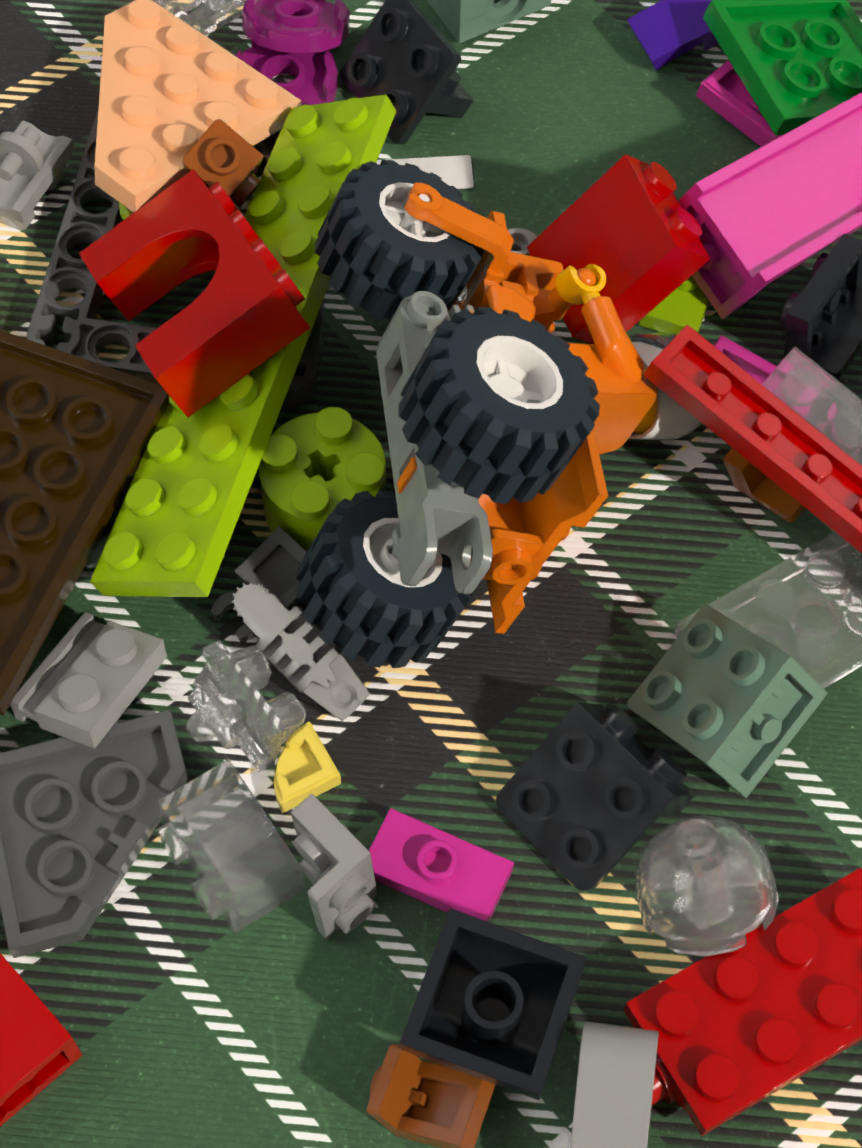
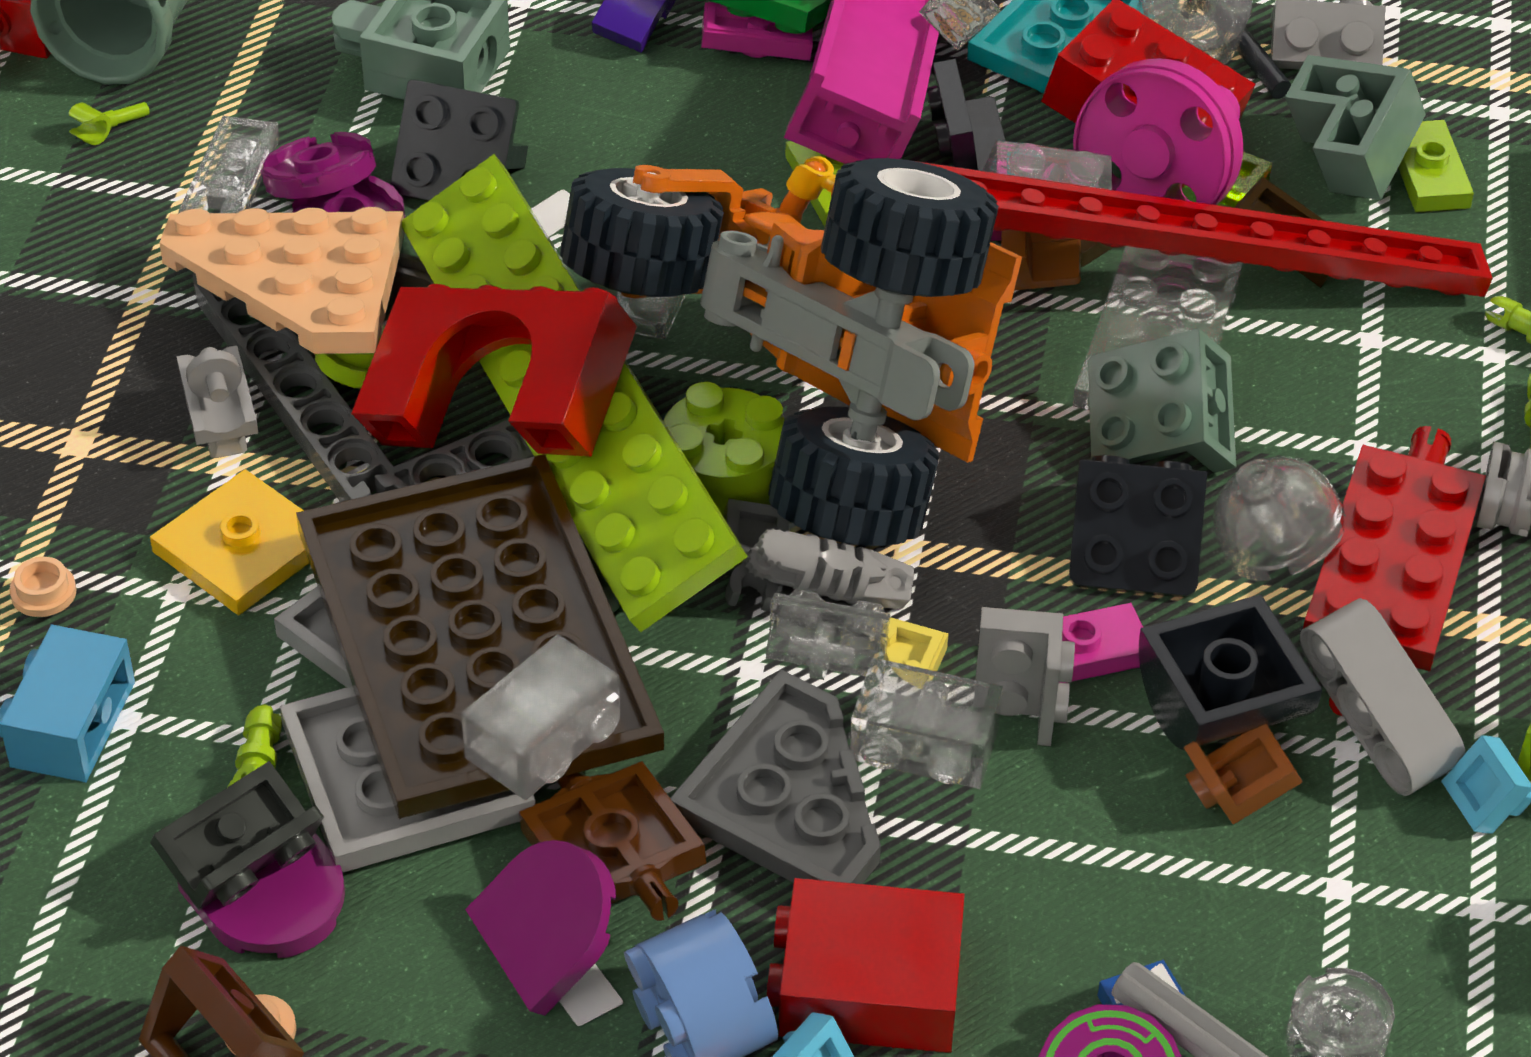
camera: 40 degrees left, 15 degrees down
(89, 680) = (697, 691): light grey plate -> none
(225, 158) = (408, 266): dark orange bracket -> none
(631, 231) = (777, 132): red brick -> none

